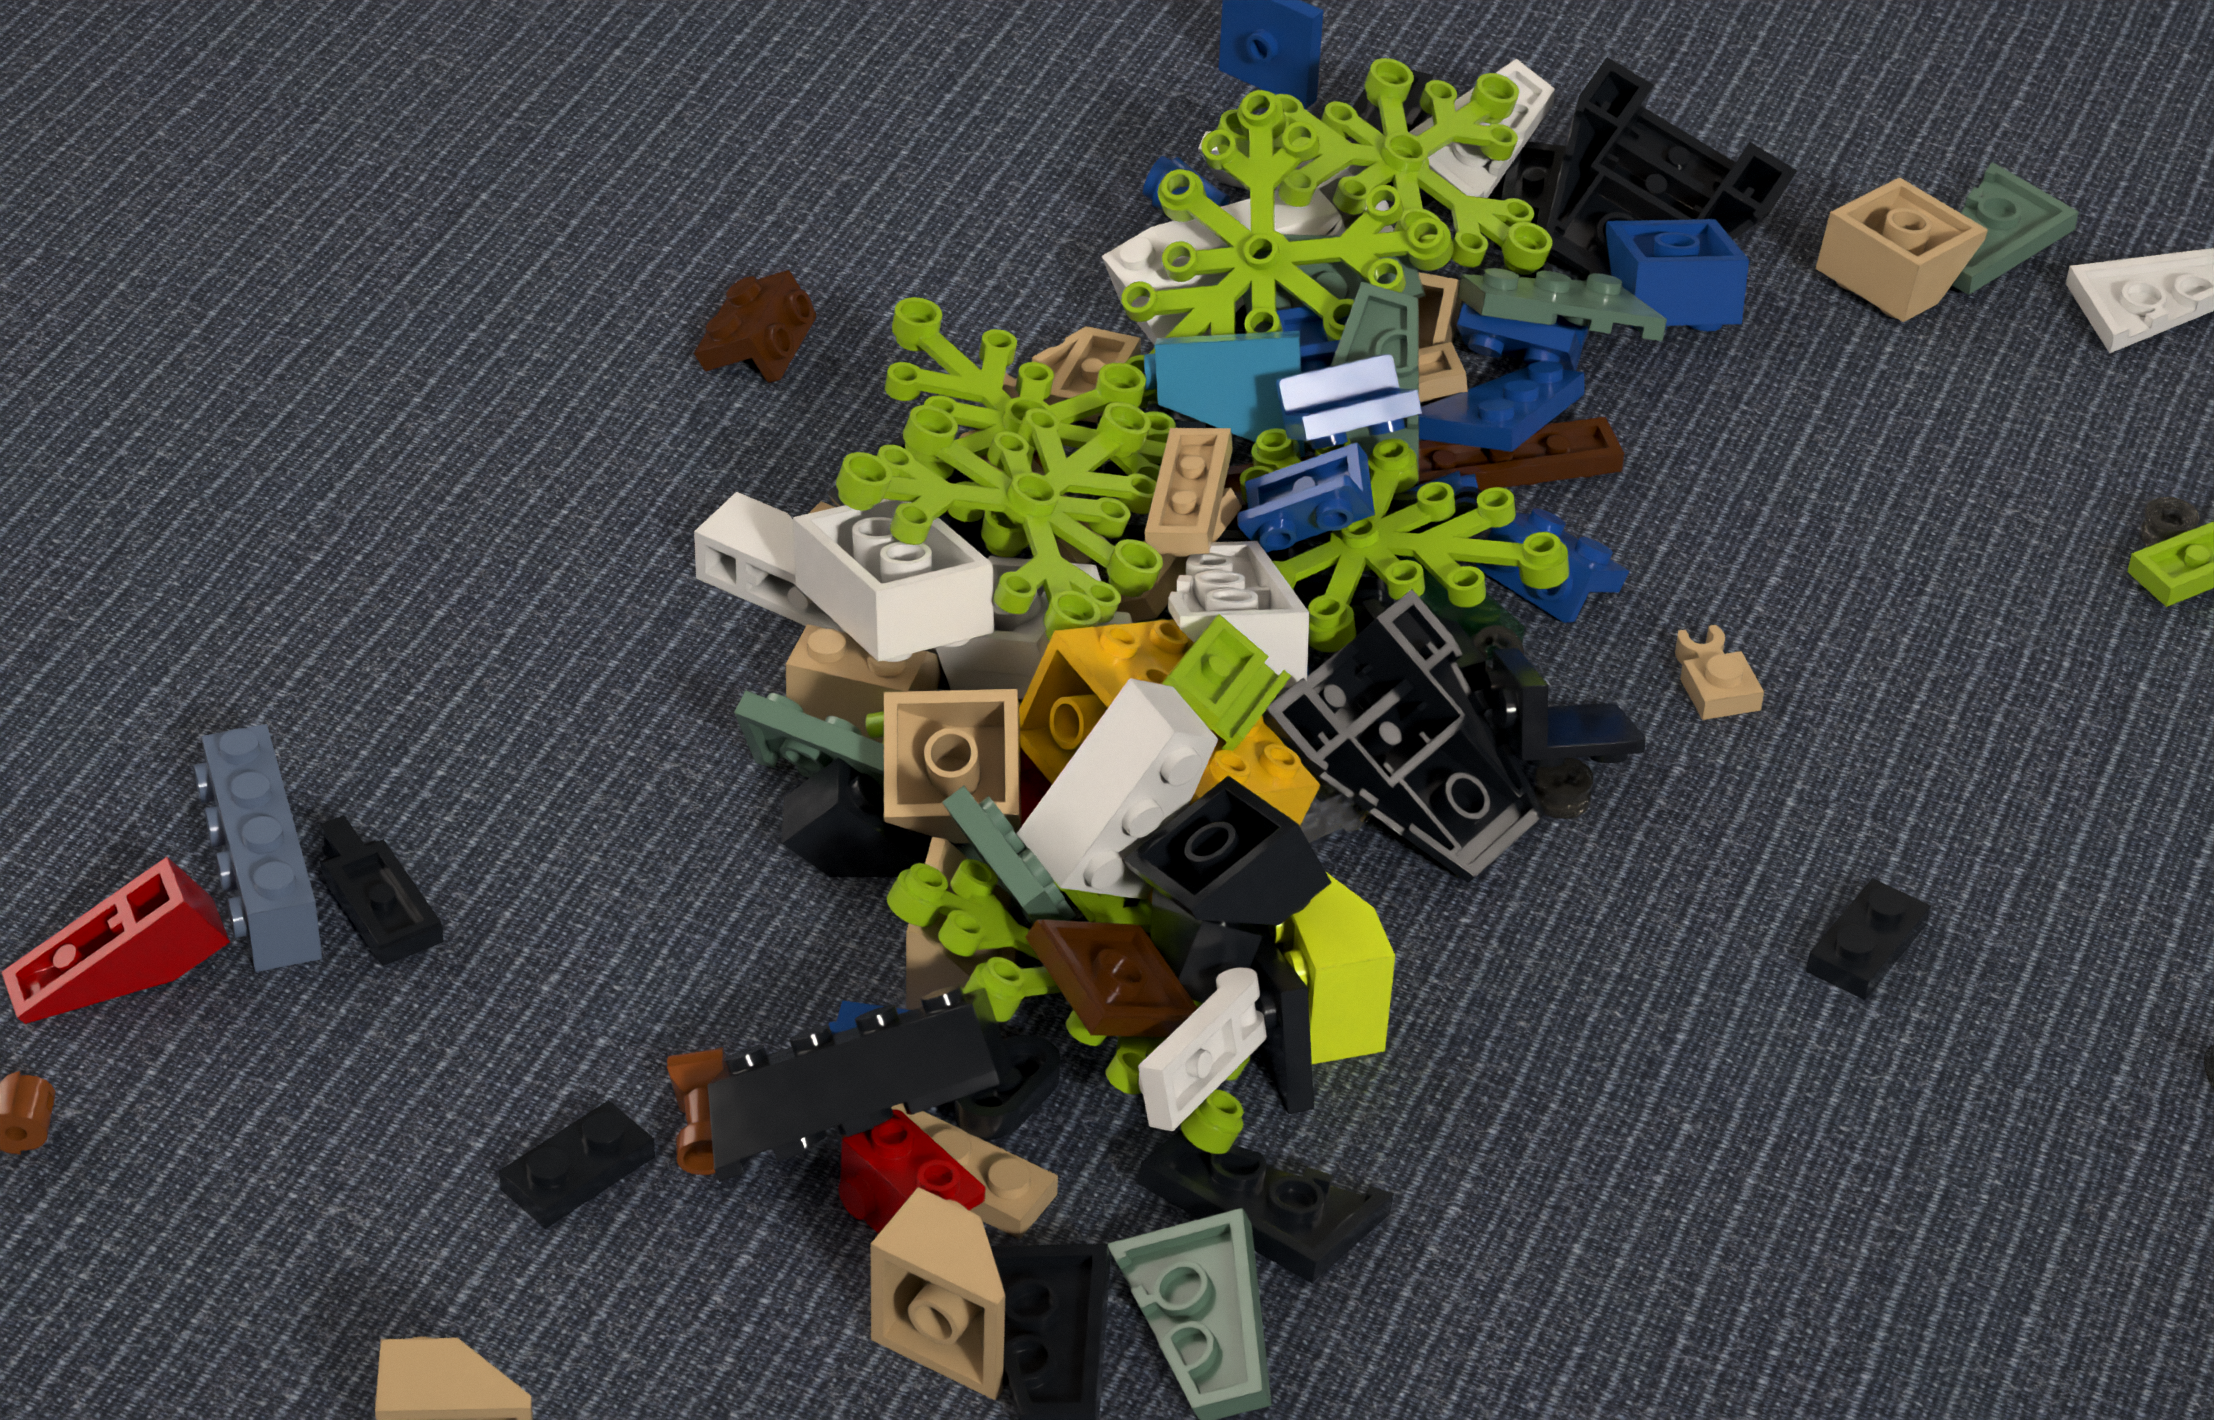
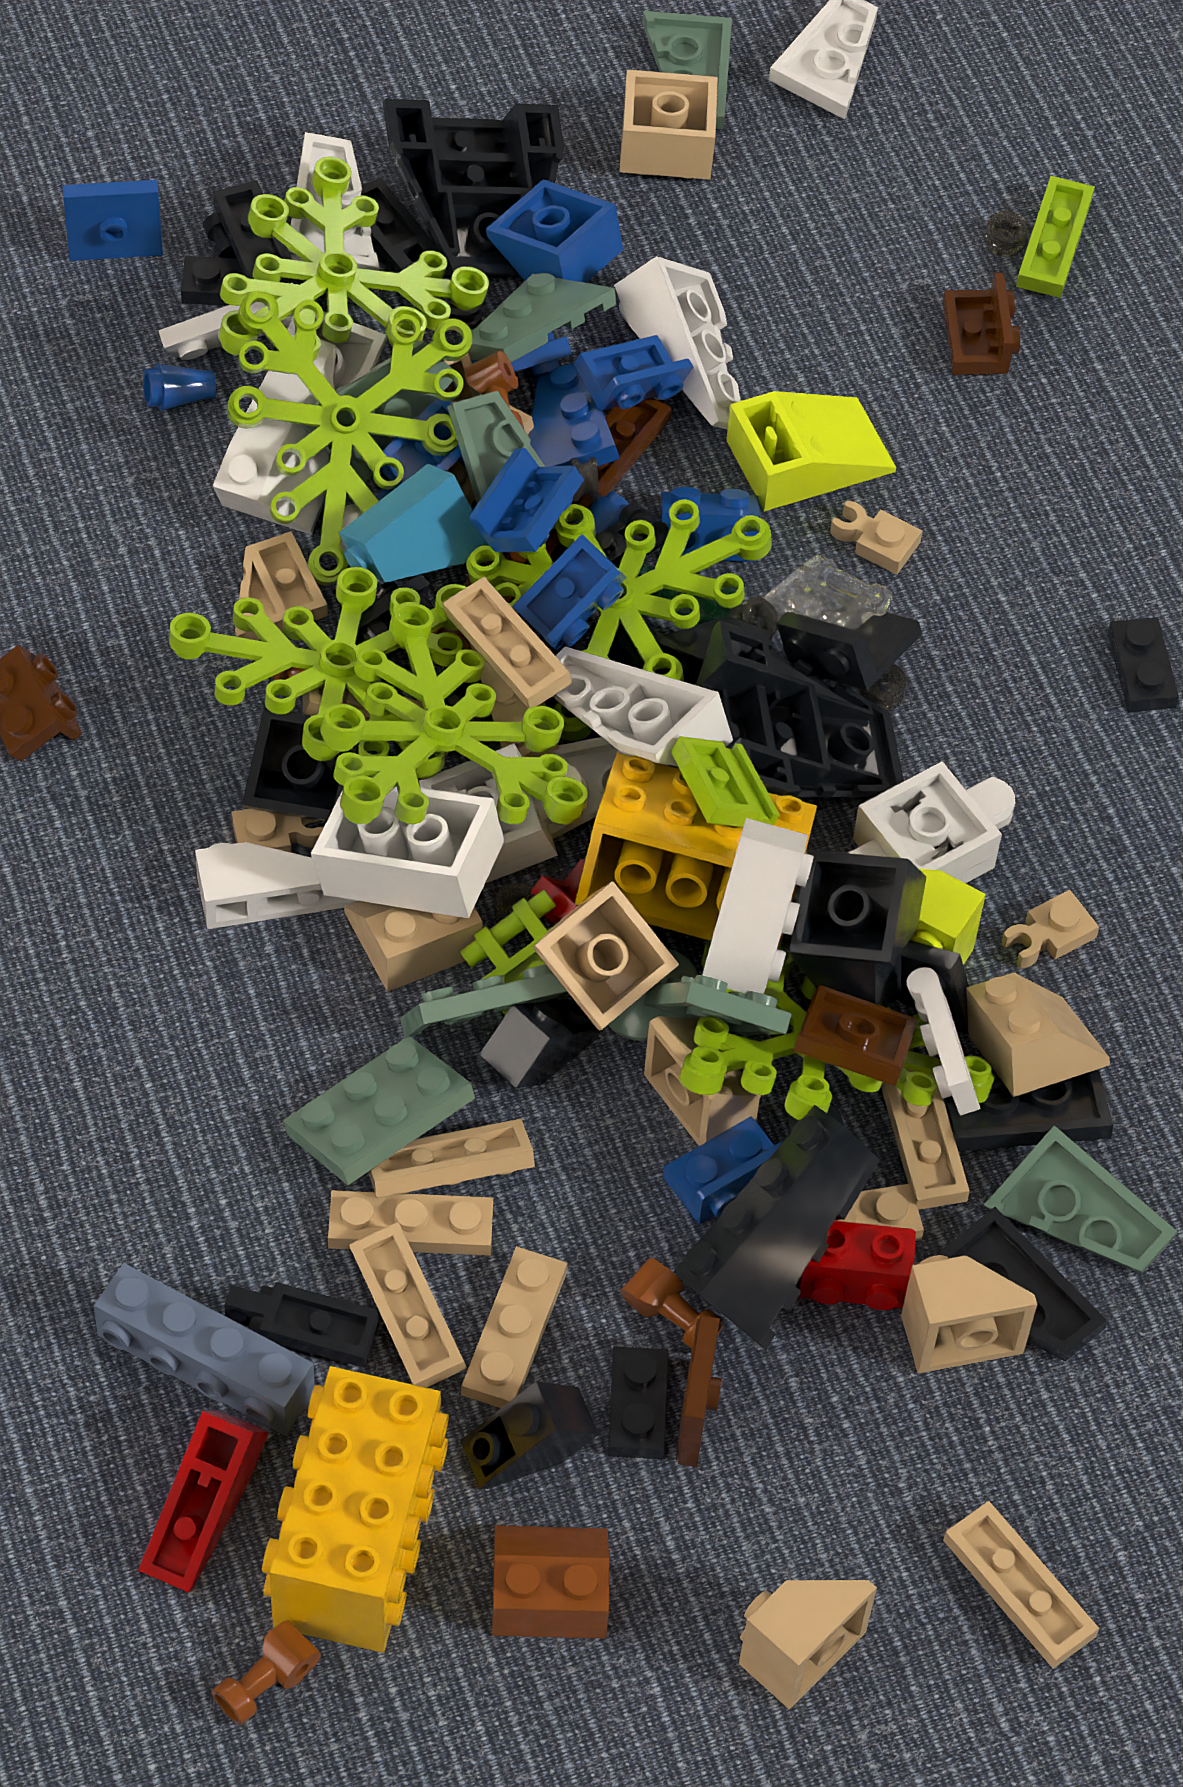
camera: 45 degrees left, 15 degrees up
(199, 1029) = (355, 1508): none -> yellow brick
(303, 1230) = (550, 1582): none -> dark orange slope
(442, 1104) = (529, 1434): none -> black slope
(470, 940) = (407, 1306): none -> tan plate
(547, 1030) = (514, 1328): none -> tan plate
(568, 891) = (428, 1221): none -> tan plate
(616, 1169) = (701, 1391): none -> reddish brown plate
(645, 781) = (378, 1109): none -> sand green plate
(658, 861) = (454, 1158): none -> tan plate
(1104, 1165) = (927, 1149): none -> tan plate
(1331, 1128) = (1029, 1034): none -> tan slope
(1451, 316) = (493, 375): none -> dark orange leg
(1451, 910) = (936, 812): none -> white brick
(1453, 443) = (590, 473): none -> clear smoke bush
(1487, 1084) = (1055, 926): none -> tan plate
(1572, 683) = (806, 595): none -> clear plate
(1604, 393) = (631, 373): none -> blue bracket
(1715, 410) = (687, 317): none -> white wedge
(1724, 554) = (804, 445): none -> neon yellow slope
(2035, 574) = (981, 329): none -> reddish brown bracket

